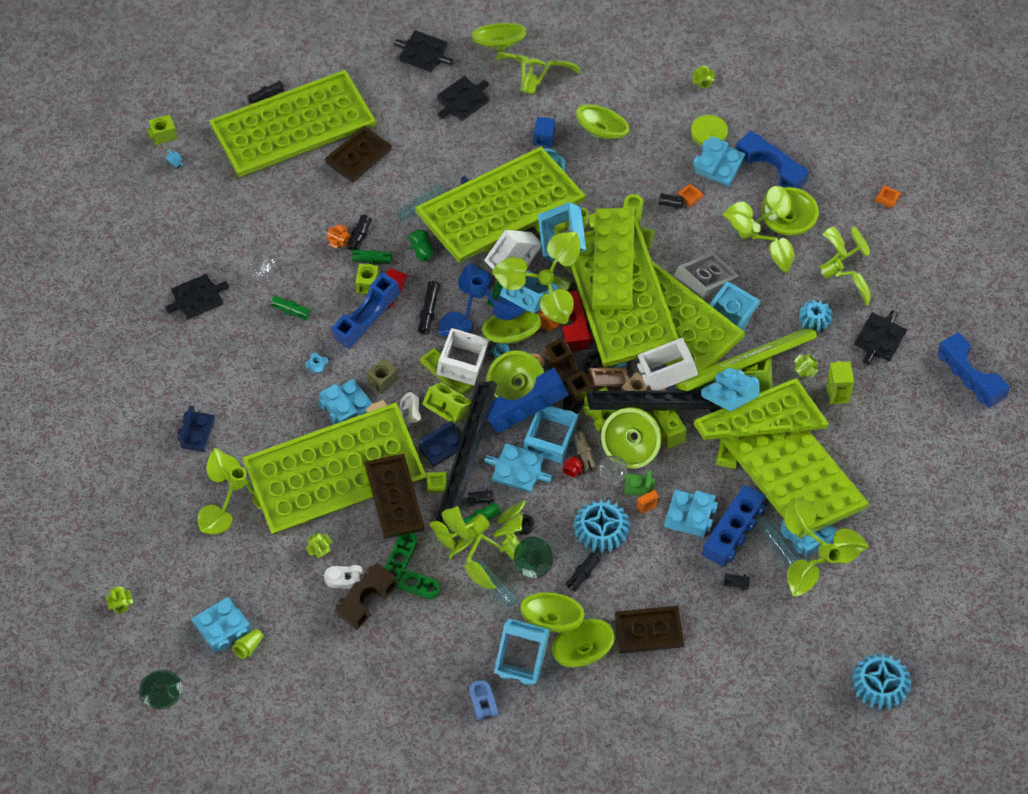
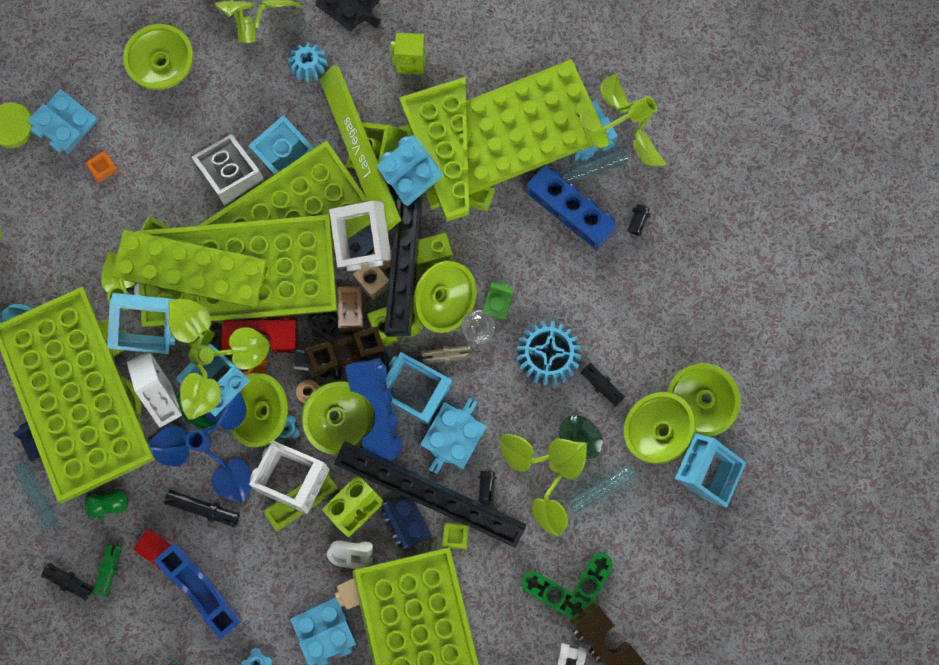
camera: 80 degrees left, 20 degrees up
(338, 236) = (68, 610): orange gear -> none
(365, 271) = (153, 584): lime brick -> none
(382, 369) = (286, 575): olive brick -> none
(394, 496) = (478, 591): dark brown plate -> none
(472, 529) = (548, 500): lime plant -> none
(481, 693) = (745, 525): medium blue plate -> none
(488, 512) = (514, 491): green pin -> none
(526, 530) = (538, 438): black bush -> none
(572, 467) = (462, 371): red plate -> none
(636, 202) = (102, 234): lime plate -> none
(647, 502) = (525, 295): orange tile -> none
(649, 629) = (687, 325): dark brown plate -> none
(671, 200) = (106, 189): black pin -> none
(691, 512) = (544, 251): medium azure plate -> none
(741, 215) = (171, 107): lime plant -> none
(760, 150) = (55, 74): blue arch -> none
(806, 365) = (374, 86): lime gear -> none
(898, 679) = (798, 99): medium azure gear -> none

